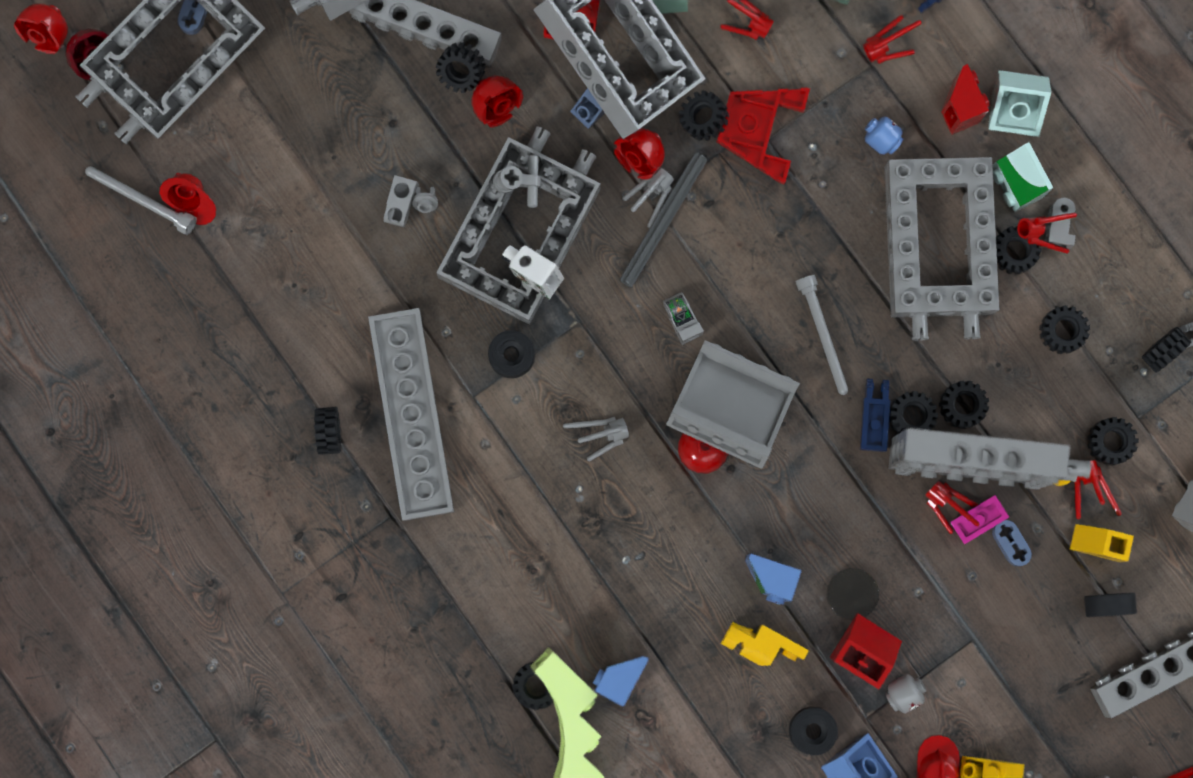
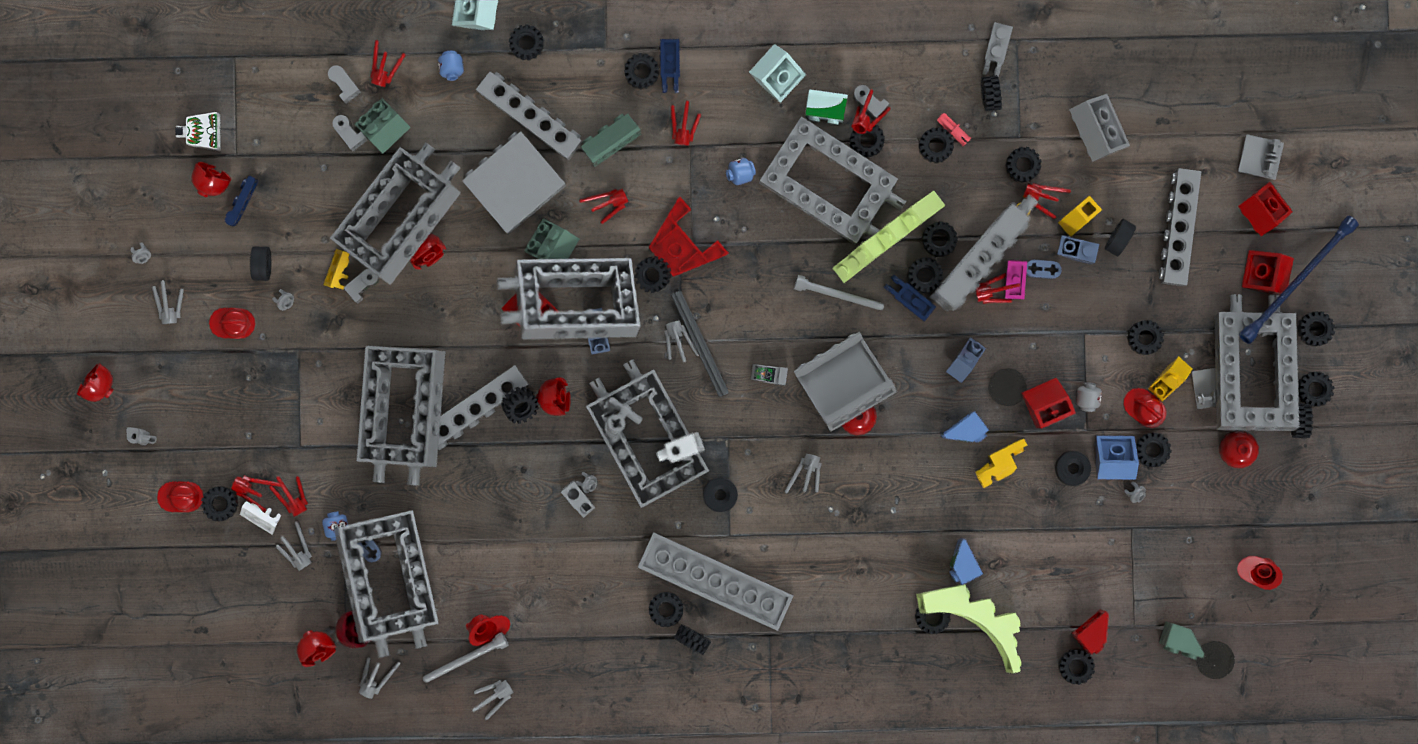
camera: 55 degrees left, 5 degrees up
(40, 113) = (368, 686): none -> light grey plant
(131, 261) = (502, 690): none -> light grey plant
(342, 364) = (654, 612): none -> black tyre
(641, 152) = (651, 328): red cylinder -> none
(850, 525) = (966, 360): none -> sand blue slope
(929, 340) = (888, 236): none -> yellowish green arch
(964, 103) = (754, 109): red slope -> none
(1029, 724) = (1134, 337): none -> black tyre
(1062, 566) = (1078, 250): none -> sand blue slope
(1096, 336) = (953, 128): none -> coral axle

